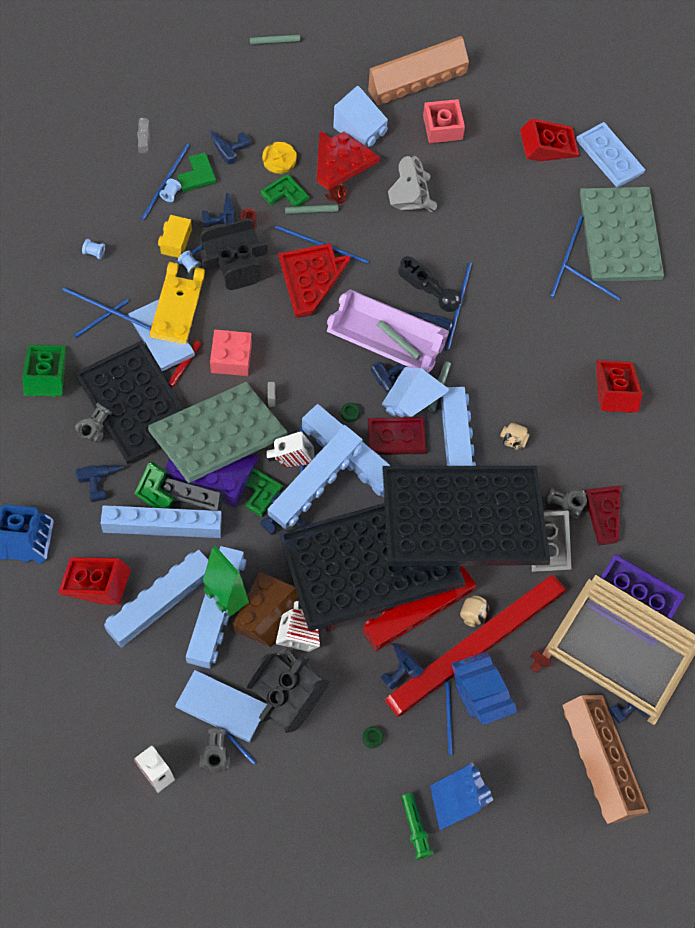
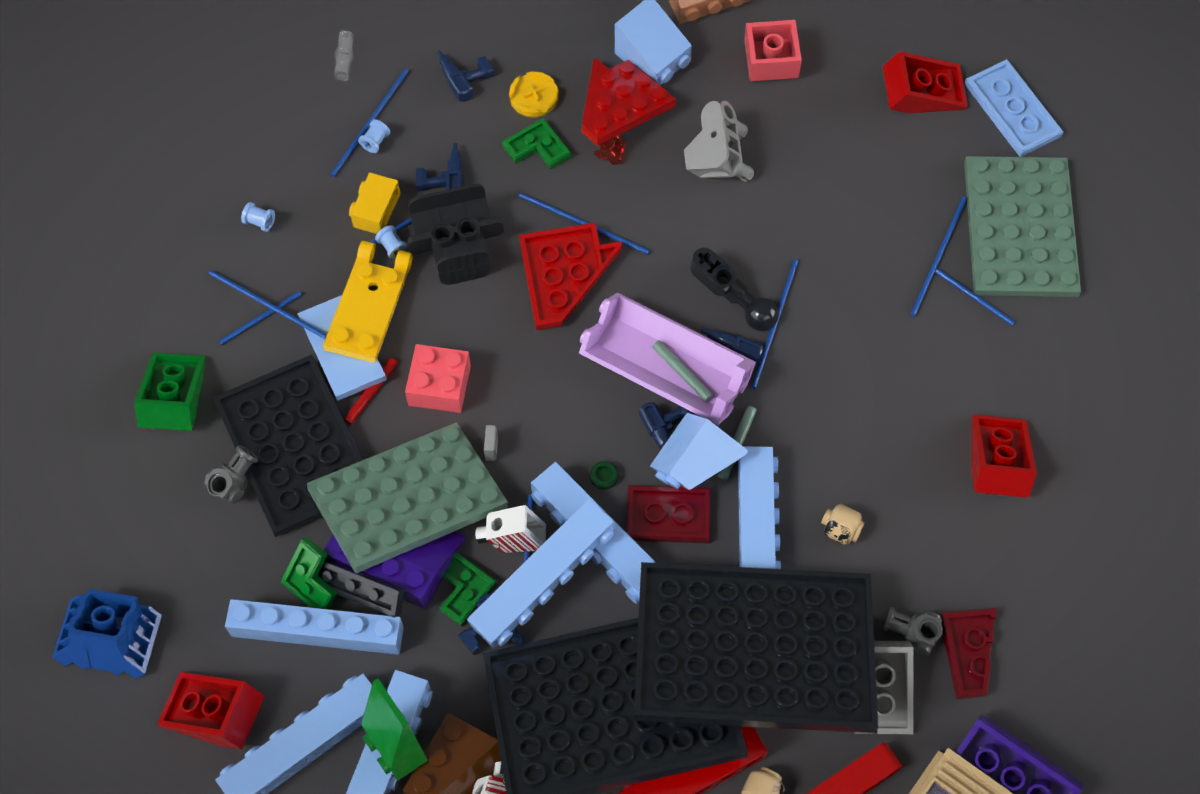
camera: 10 degrees right, 0 degrees up
(93, 475) = (225, 550): dark blue piece -> none
(200, 176) = (419, 118): green tile -> none
(250, 214) = (484, 179): clear red bush -> none
(311, 209) = (572, 171): sand green bar -> none

